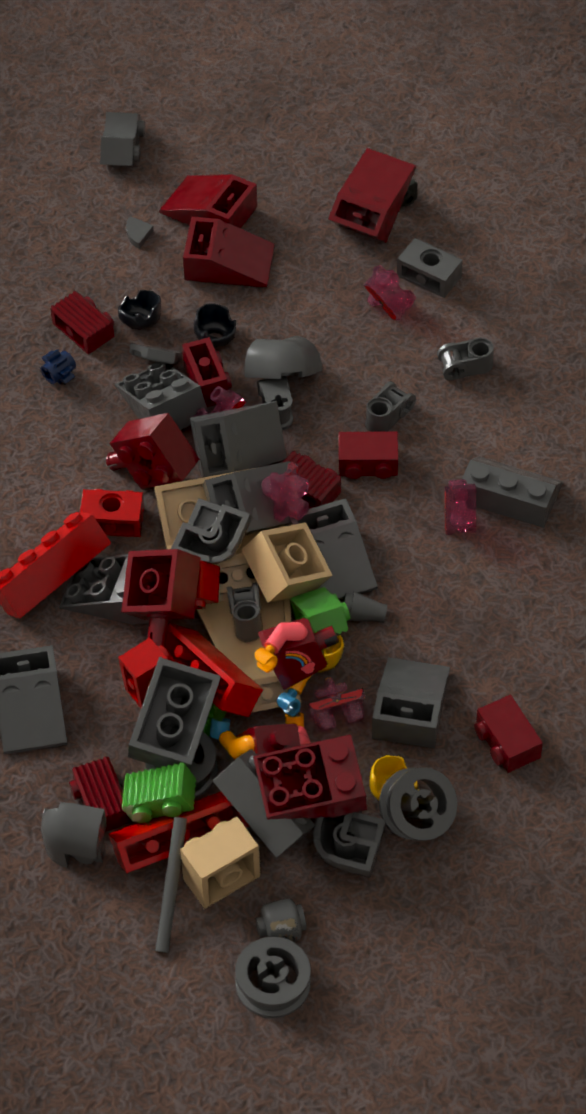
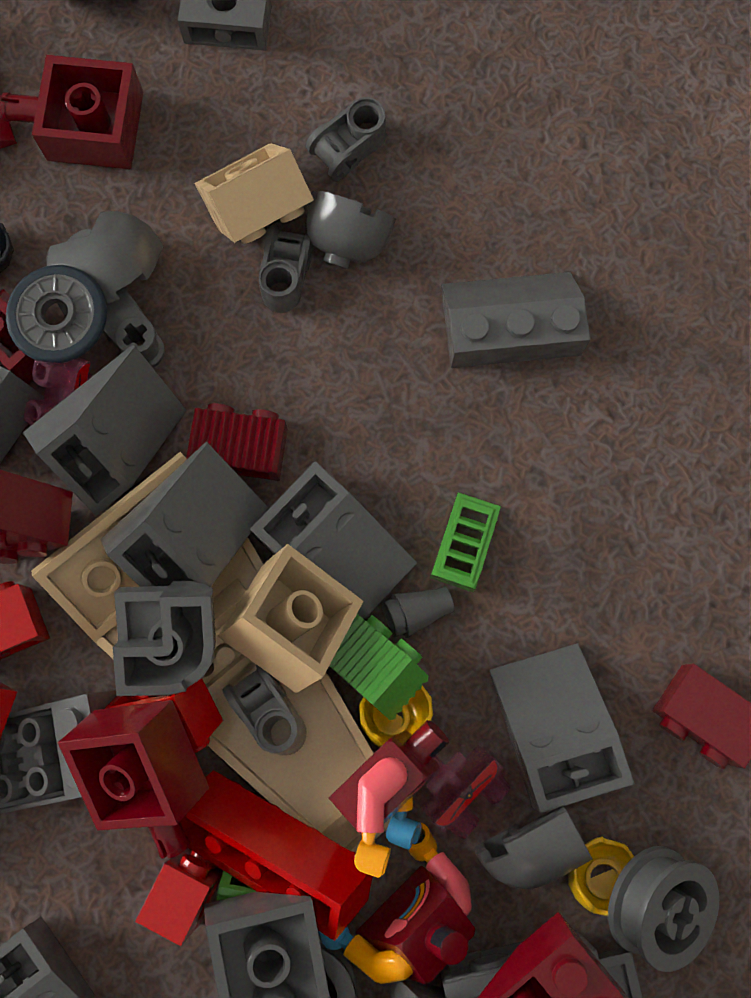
camera: 30 degrees left, 25 degrees up
(251, 355) = (76, 333): none -> wheel
(287, 492) = (234, 509): clear pink hips -> none
(315, 284) = (82, 111): none -> dark red brick
(367, 730) = (535, 852): none -> dark grey brick
(368, 454) = (298, 357): dark red brick -> none
(386, 292) = (190, 82): clear pink hips -> none
(390, 358) = (255, 193): none -> tan brick
(404, 607) = (453, 576): none -> bright green slope
(435, 401) = (346, 229): none -> dark grey cylinder
(460, 507) = (472, 390): clear pink hips -> none

